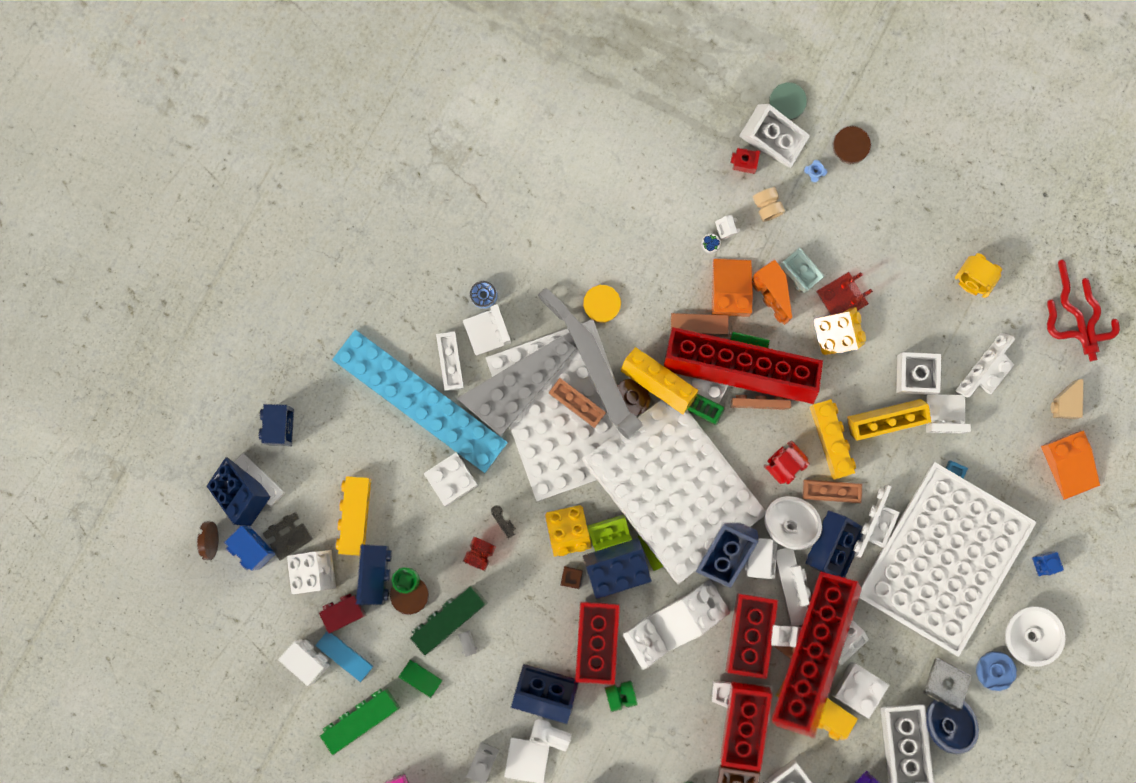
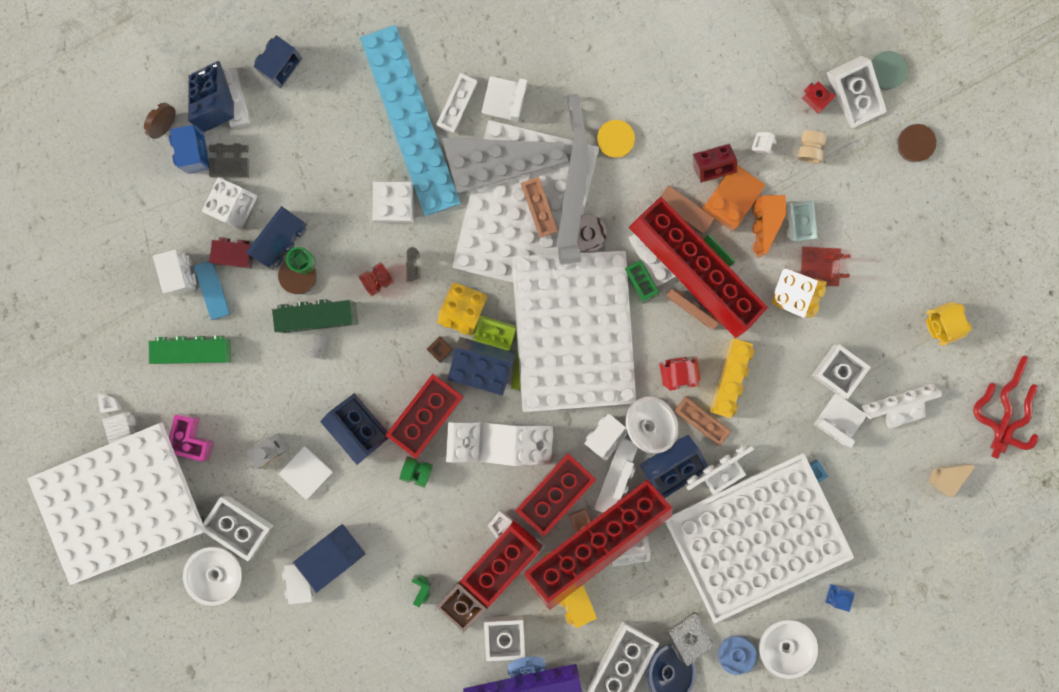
camera: 30 degrees right, 5 degrees up
(354, 515) = (294, 179): yellow brick -> none
(420, 678) = (262, 349): green slope -> none
(476, 291) = (517, 59): wheel -> none
(544, 735) = (334, 462): white piece -> none
(659, 380) = (620, 233): yellow brick -> none
(698, 270) = (715, 163): none -> dark red brick
(710, 243) = (741, 147): tile -> none
(728, 553) = (581, 414): dark blue slope -> none
(785, 635) = (583, 512): white slope -> none
(816, 165) = (875, 141): light blue plate -> none
(860, 690) = (615, 596): white brick -> none
(889, 419) = (790, 393): yellow brick -> none
(1072, 464) = (916, 530): orange slope -> none

